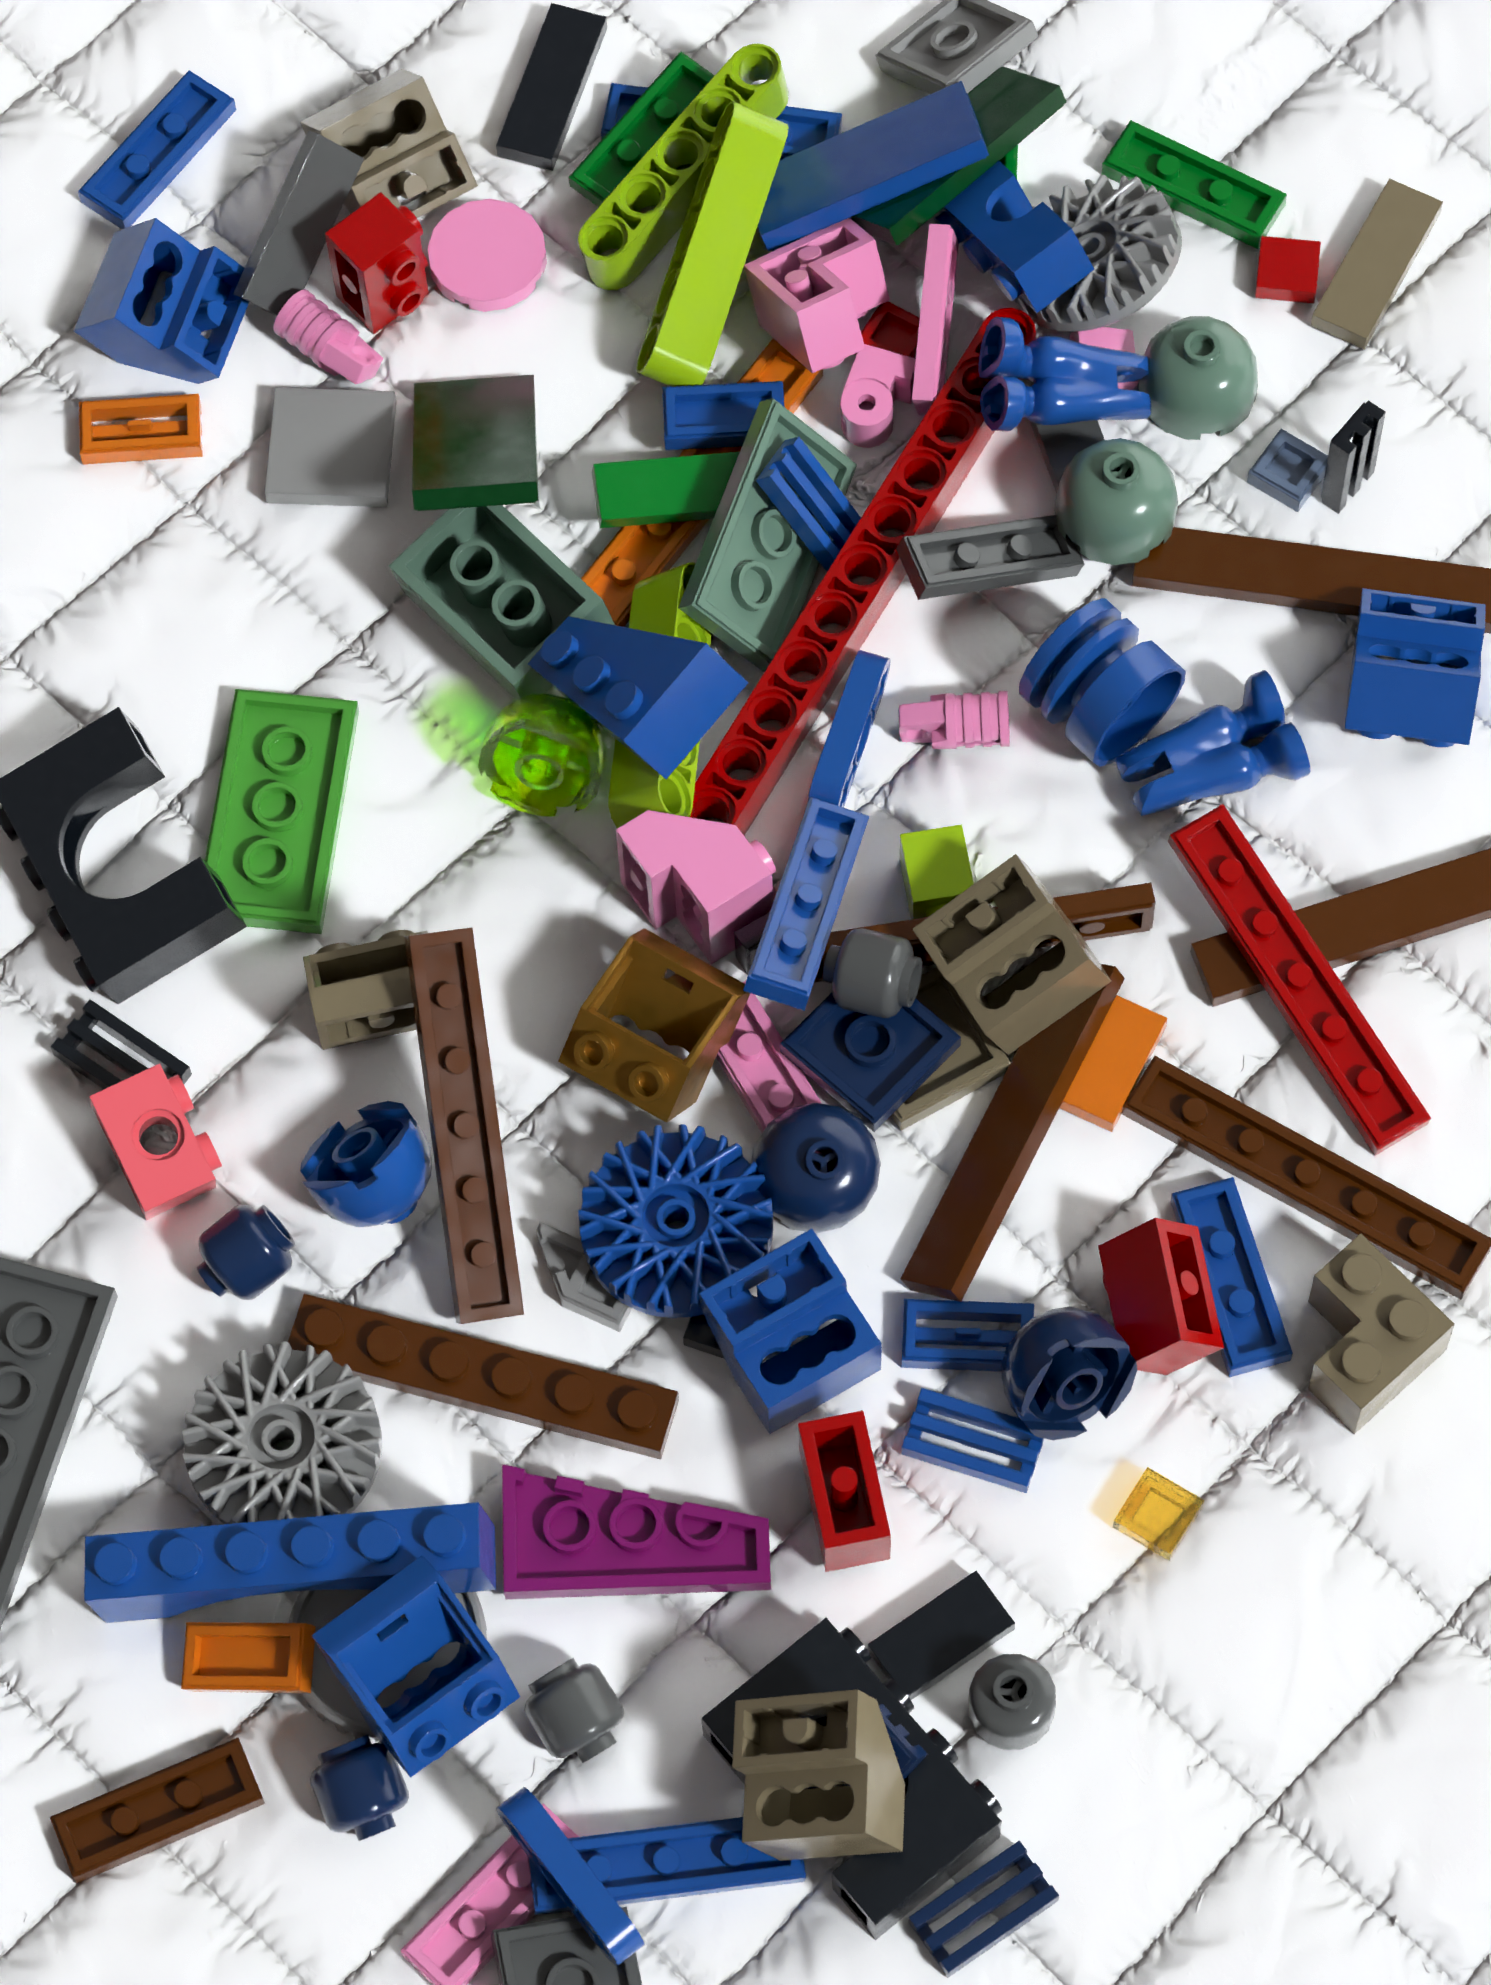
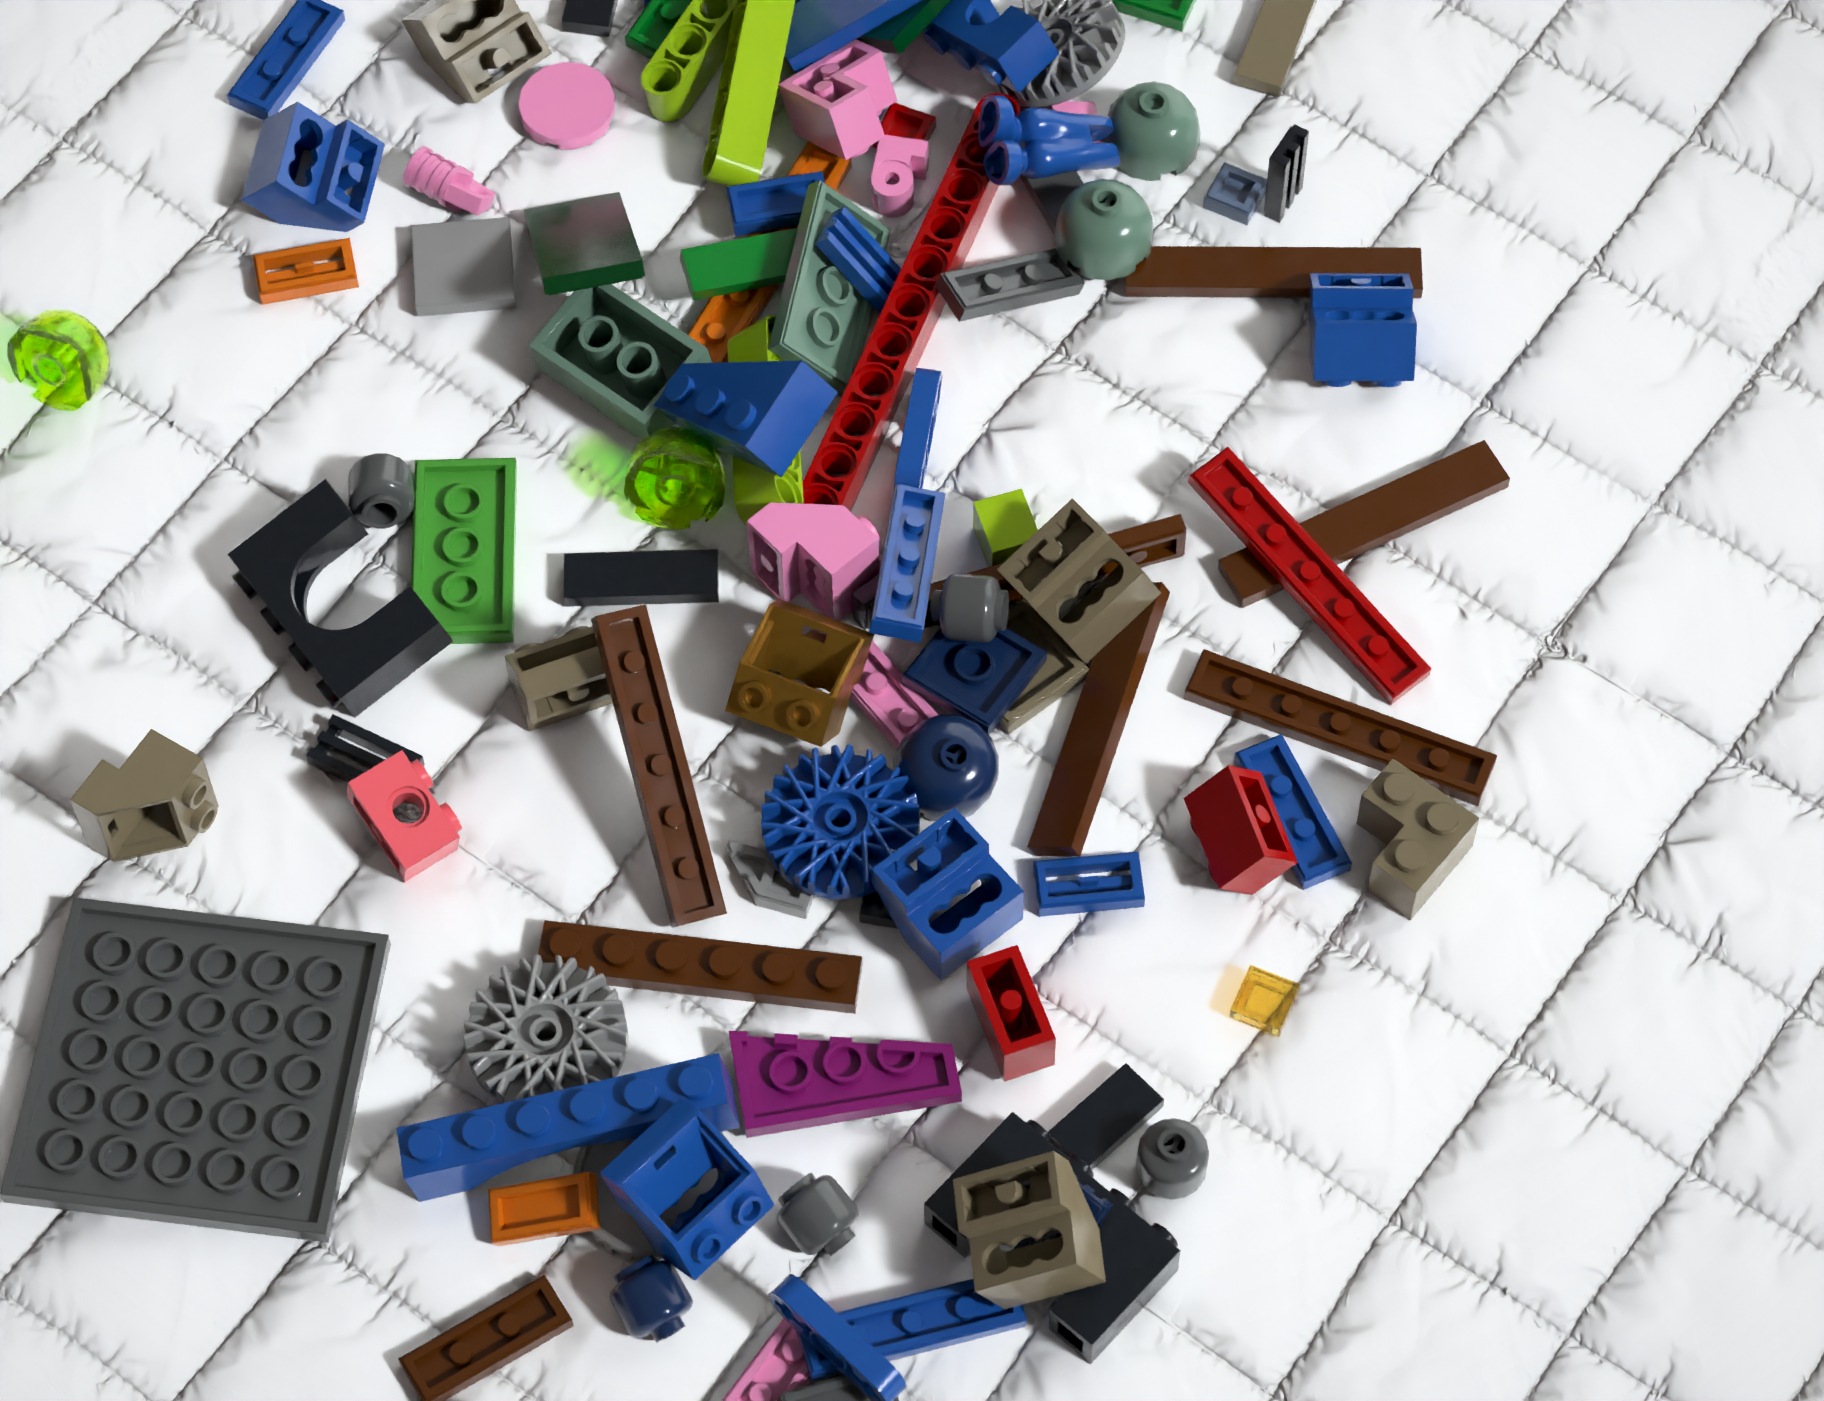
camera: 10 degrees left, 5 degrees down
(188, 724) = (381, 490): none -> dark grey head
(245, 1252) = (491, 893): dark blue head -> none
(298, 223) = (413, 95): dark grey tile -> none
(370, 1169) = (586, 814): blue cylinder -> none
(378, 262) = (482, 117): red brick -> none
(486, 873) = (641, 577): none -> black tile
(935, 316) = (936, 106): bright pink tile -> none
(957, 720) = (1003, 413): bright pink hinge -> none
(981, 1417) = (1107, 945): blue tile -> none
(1030, 1875) = (1206, 1295): dark blue tile -> none
(1066, 1371) = (1175, 896): dark blue cylinder -> none
(1101, 682) = (1115, 366): blue wheel -> none
(1114, 1063) = (1171, 660): orange tile -> none
(1209, 752) = (1210, 410): blue piece -> none
(1287, 269) = (1209, 43): red tile -> none

